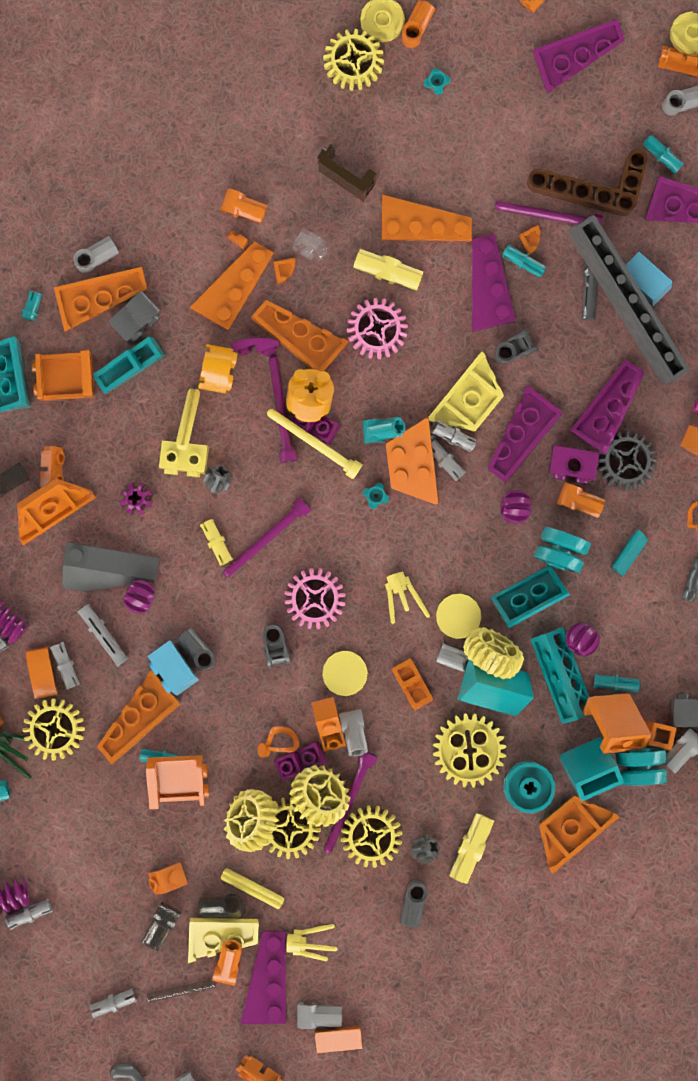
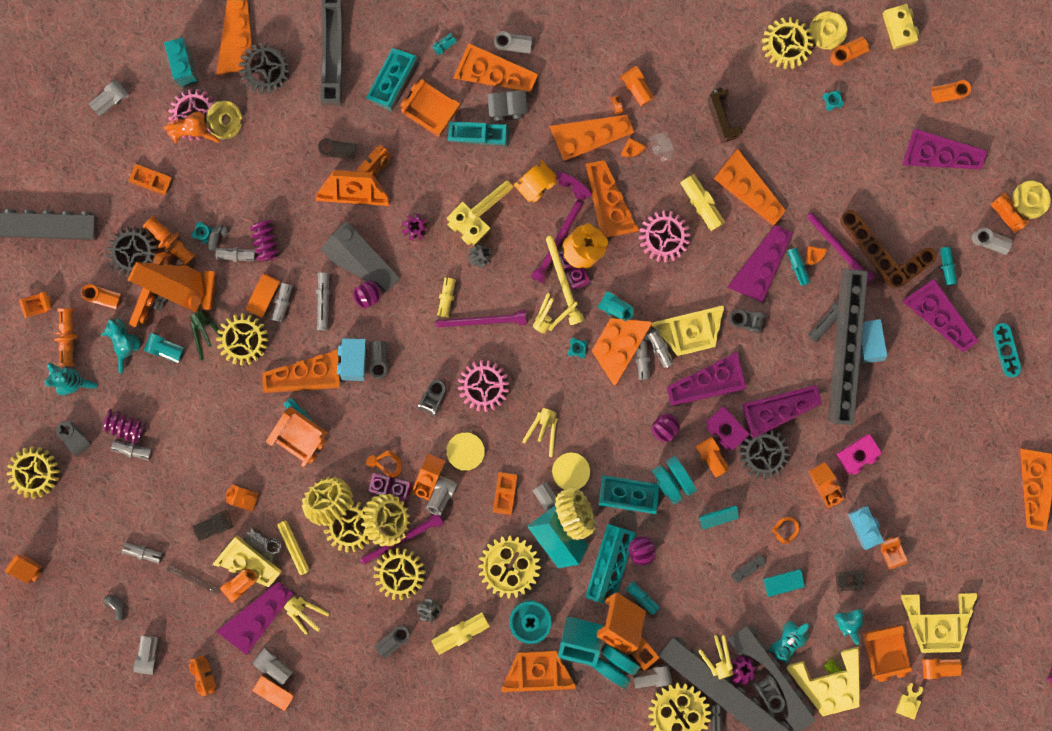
camera: 35 degrees right, 0 degrees up
(325, 495) = (543, 321): none -> light yellow plant

